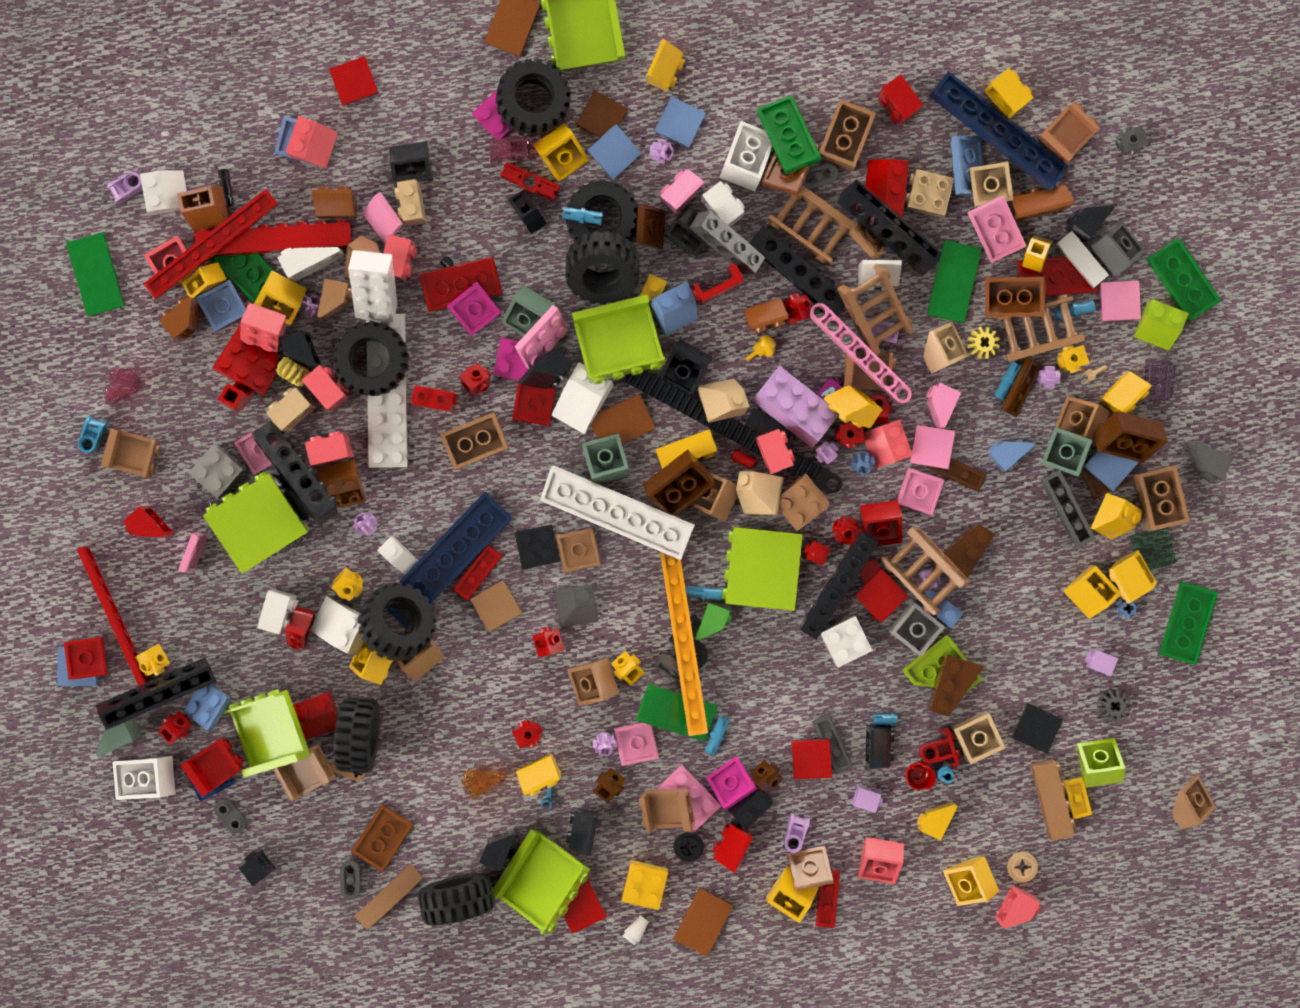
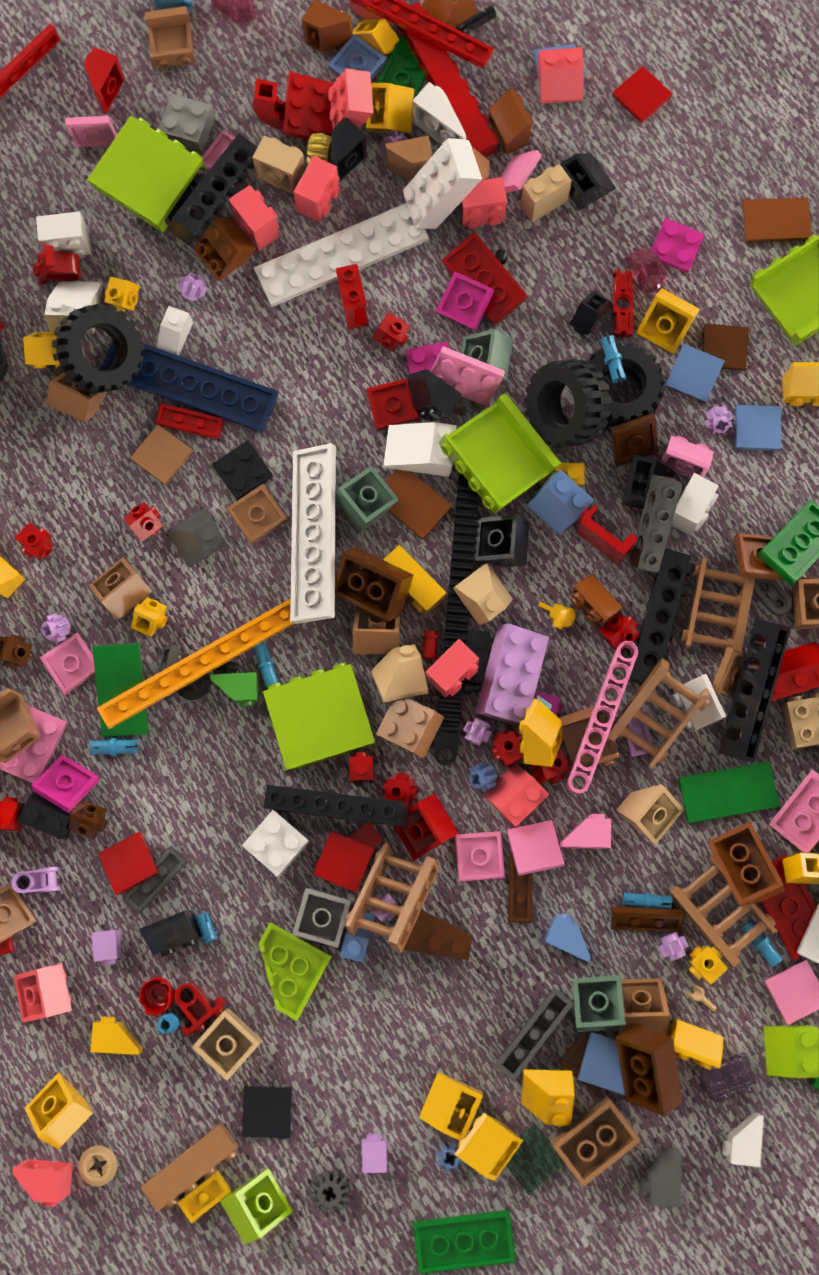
camera: 75 degrees right, 10 degrees down
(345, 358) = (361, 191): black tyre -> none
(474, 441) = (326, 358): medium nougat brick -> none
(538, 74) = (725, 243): black tyre -> none
(747, 157) = (755, 509): white slope -> none
(952, 683) = (277, 985): reddish brown wedge -> none
(976, 342) = (679, 863): light yellow gear -> none
(1208, 389) = (745, 1142): none -> white slope

